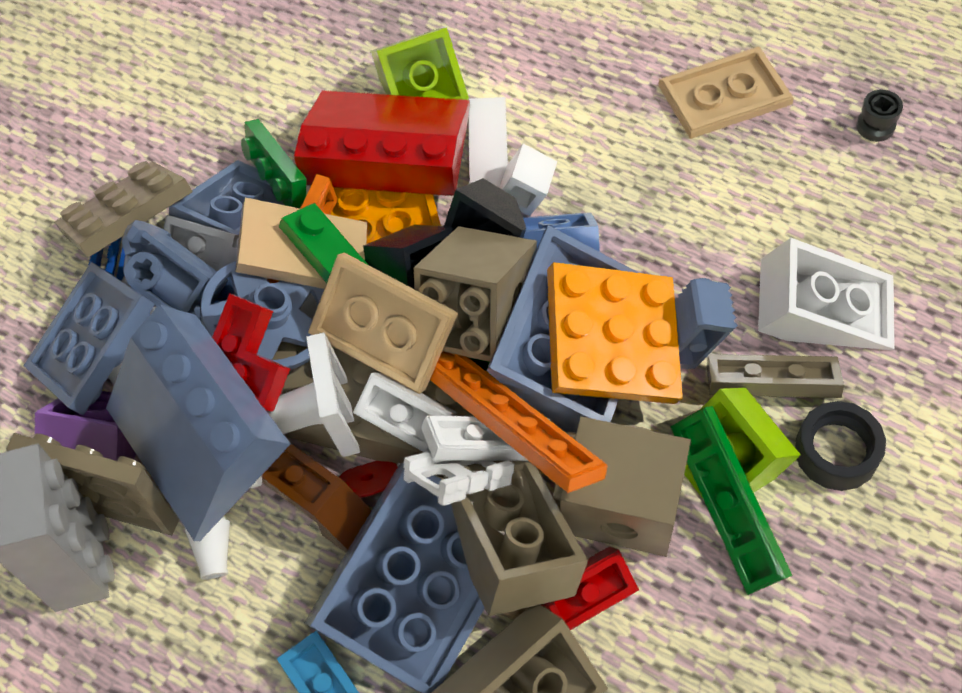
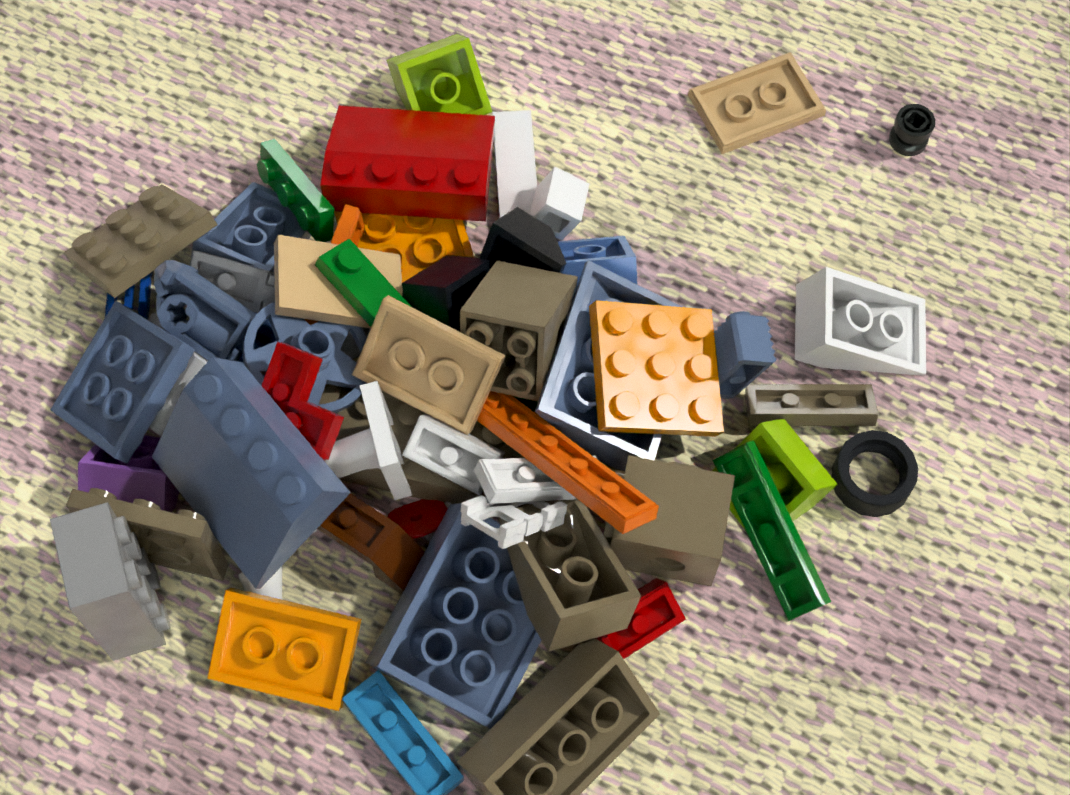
camera: 10 degrees left, 5 degrees up
(222, 605) = (284, 648): none -> light orange plate

